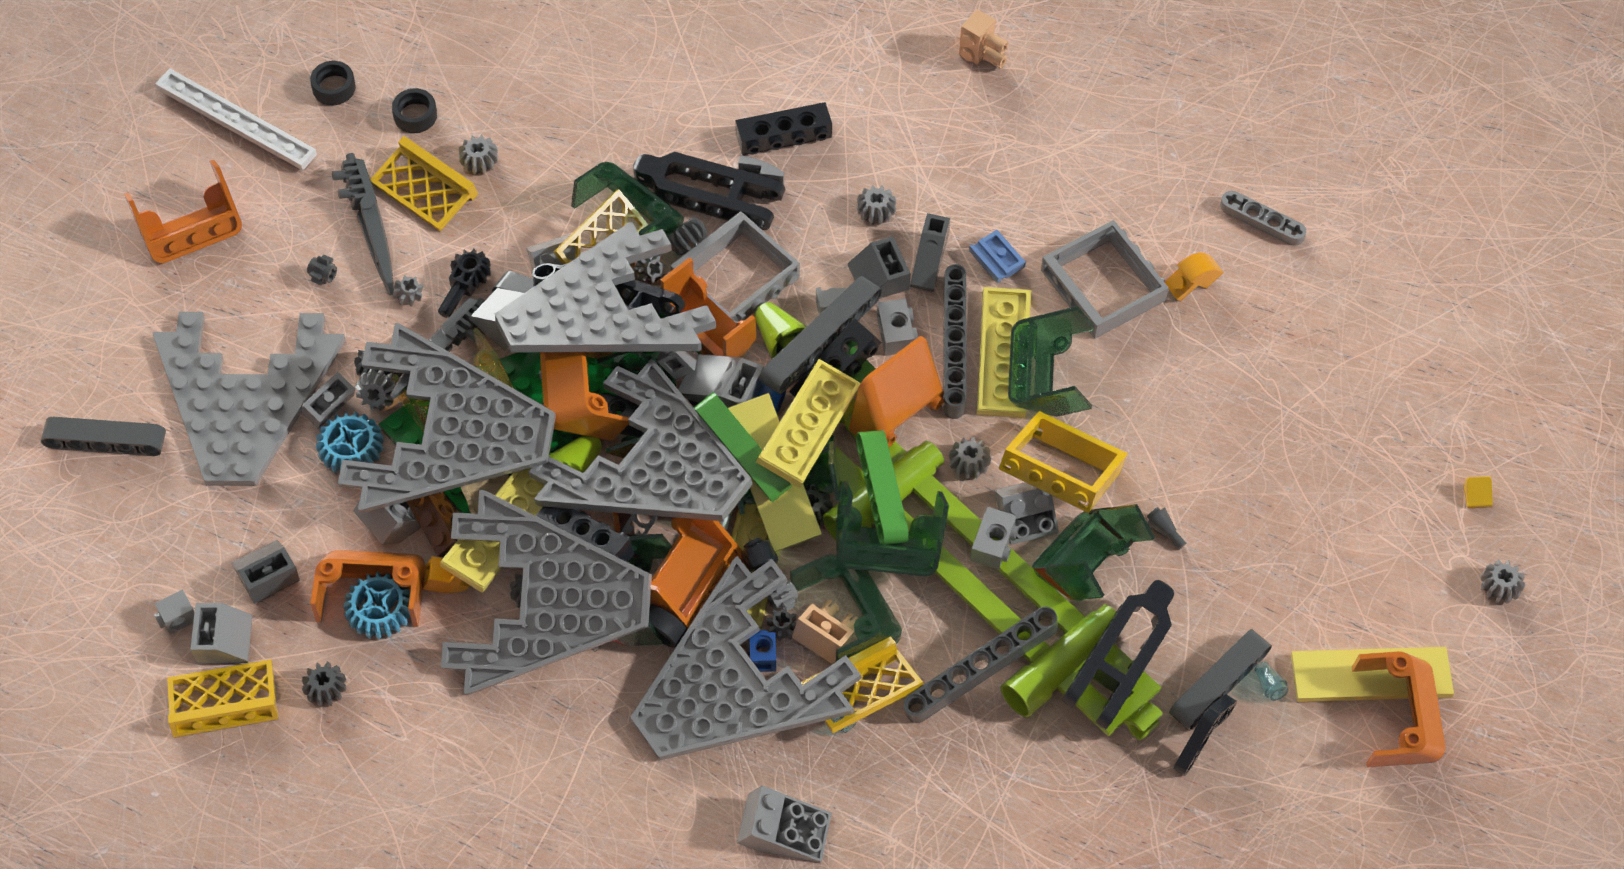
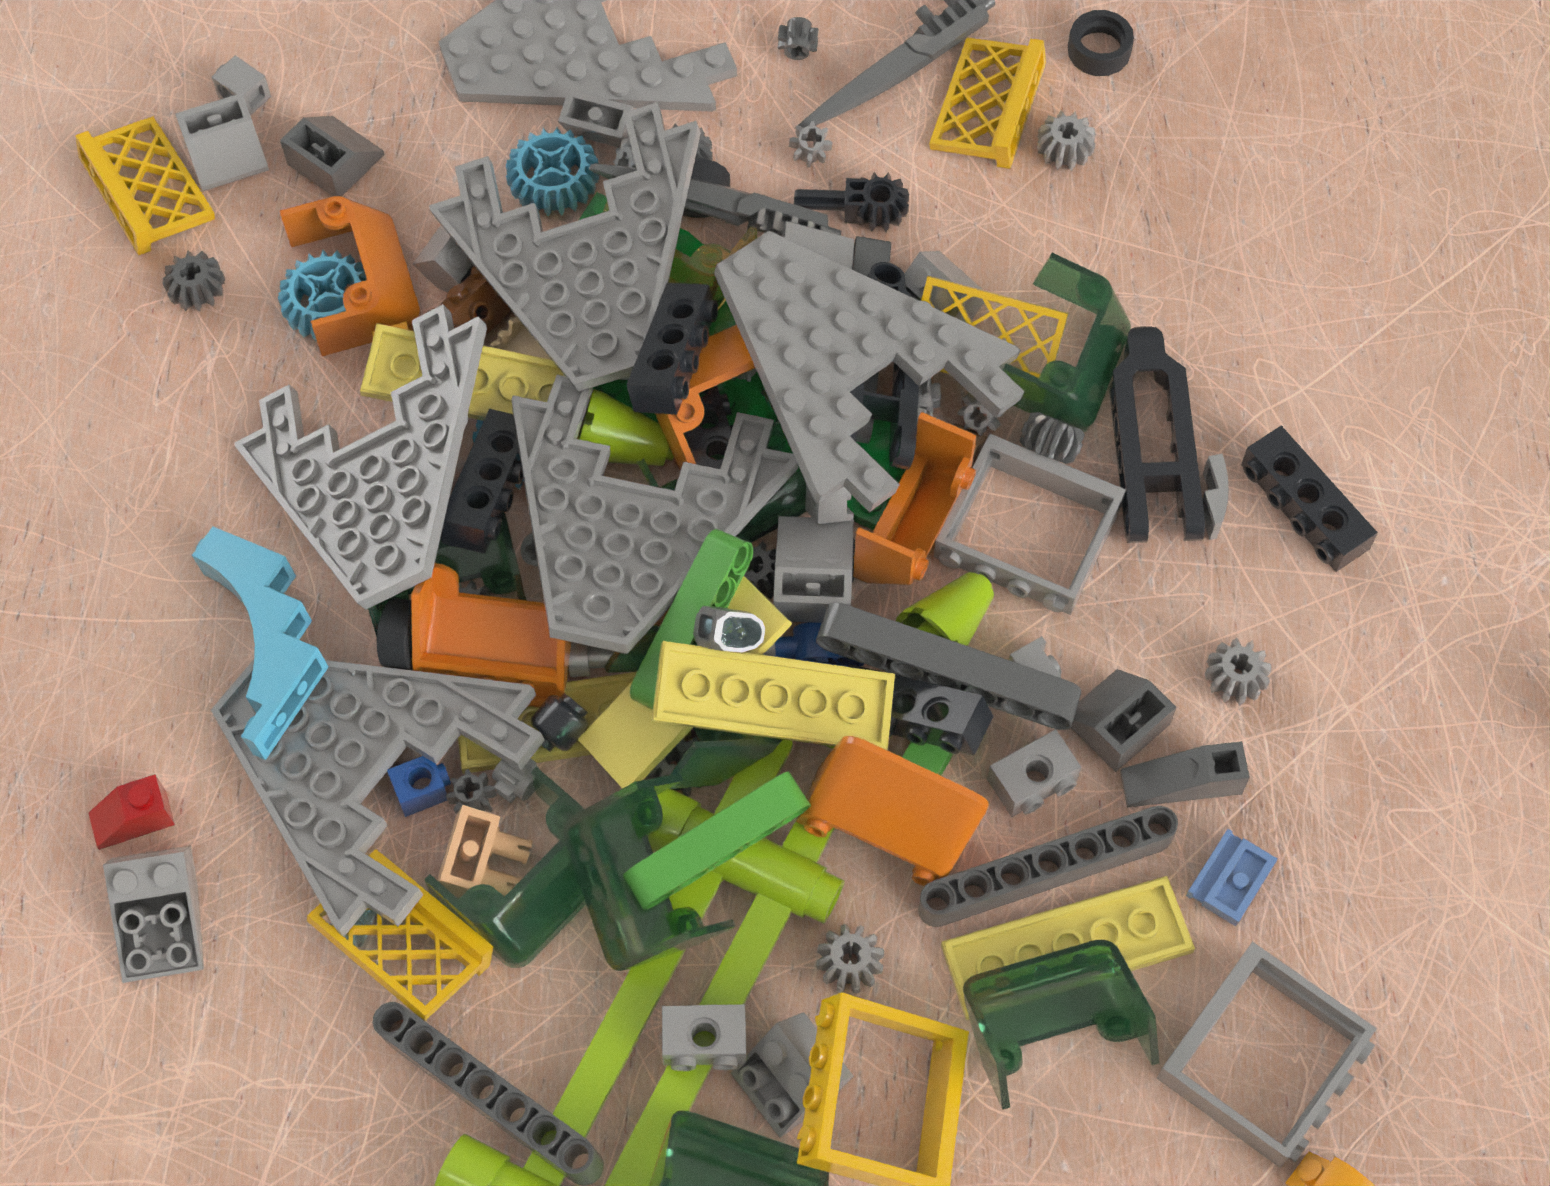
camera: 70 degrees right, 5 degrees up
(554, 393) = (672, 348): none -> black brick
(652, 697) = (283, 664): none -> medium azure arch
(710, 824) = (131, 812): none -> red slope
(763, 423) = (728, 629): none -> flat silver rock

